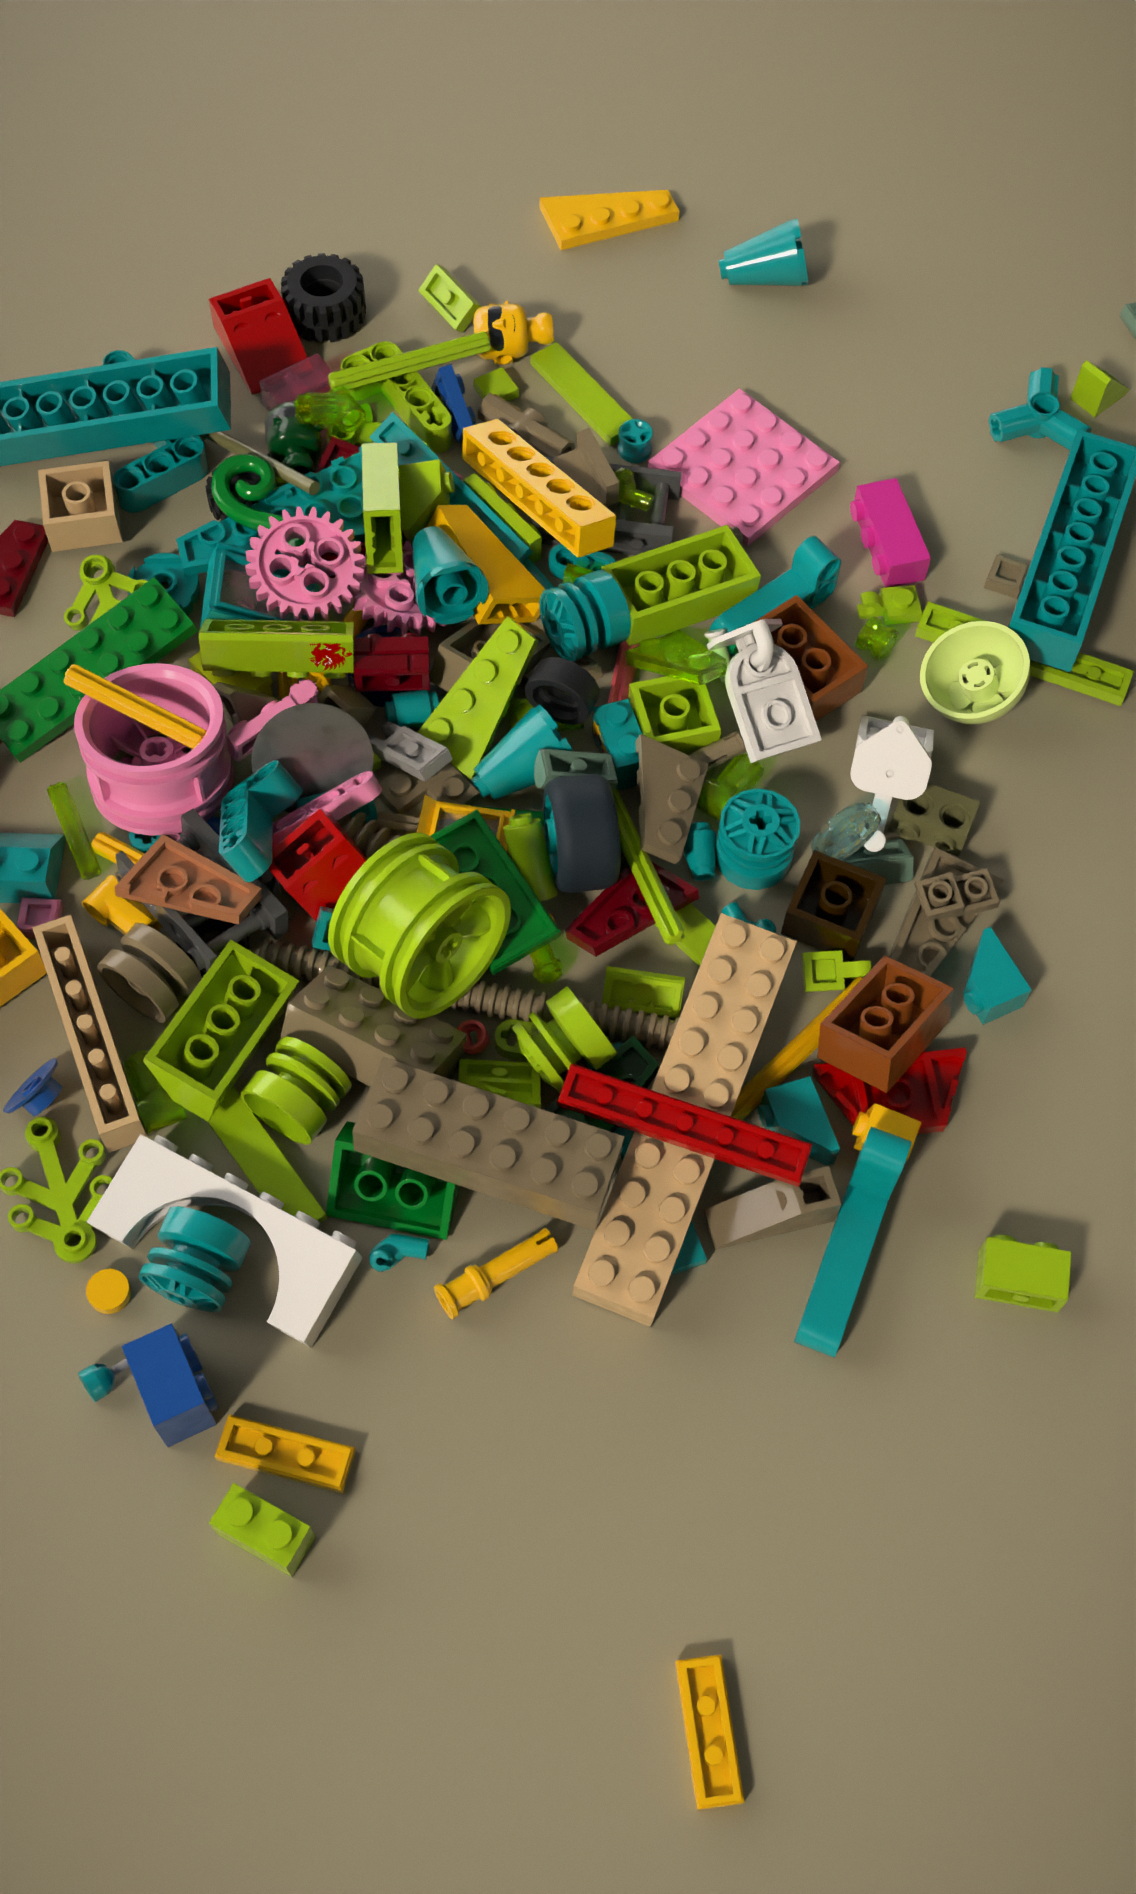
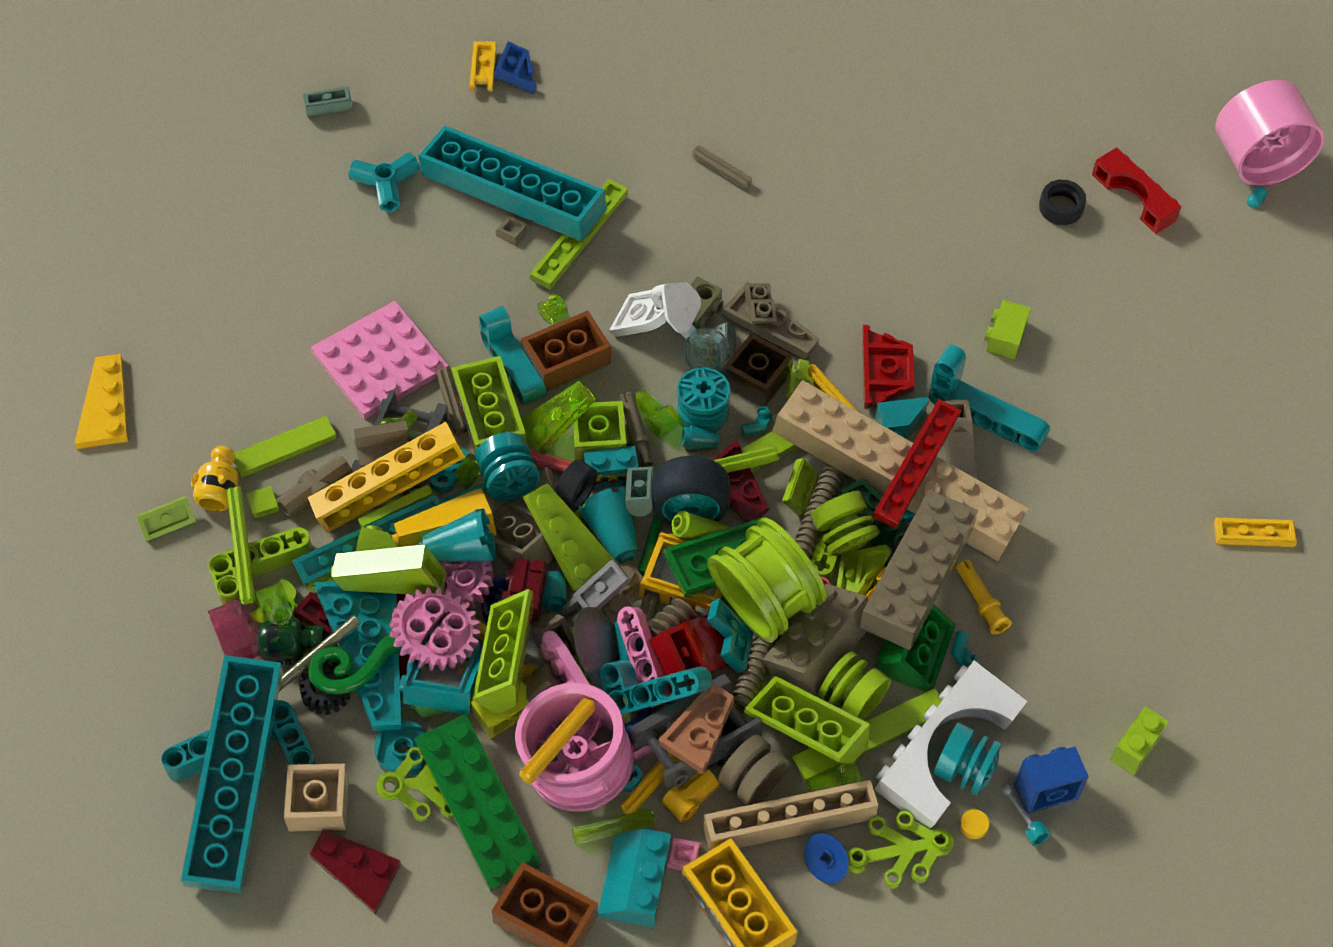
camera: 80 degrees left, 5 degrees down
(256, 331) = (171, 654): red slope -> none
(285, 1453) = (1090, 725): yellow tile -> none
(324, 297) = (144, 622): black tyre -> none
(451, 390) = (274, 522): blue wing -> none
(635, 441) = (338, 414): teal wheel -> none
(669, 797) = (667, 439): dark tan wing -> none
(765, 691) = (596, 366): white plate -> none
(767, 259) = (196, 301): teal cone -> none
(885, 1023) = (850, 355): dark orange brick -> none
(887, 1121) = (920, 371): yellow brick -> none
(890, 533) = (465, 283): dark pink brick -> none
(895, 604) = (523, 294): lime plate -> none
(975, 672) = (603, 243): yellowish green piece -> none
(993, 981) = (816, 302): teal slope -> none
(1096, 389) = (370, 143): lime slope -> none

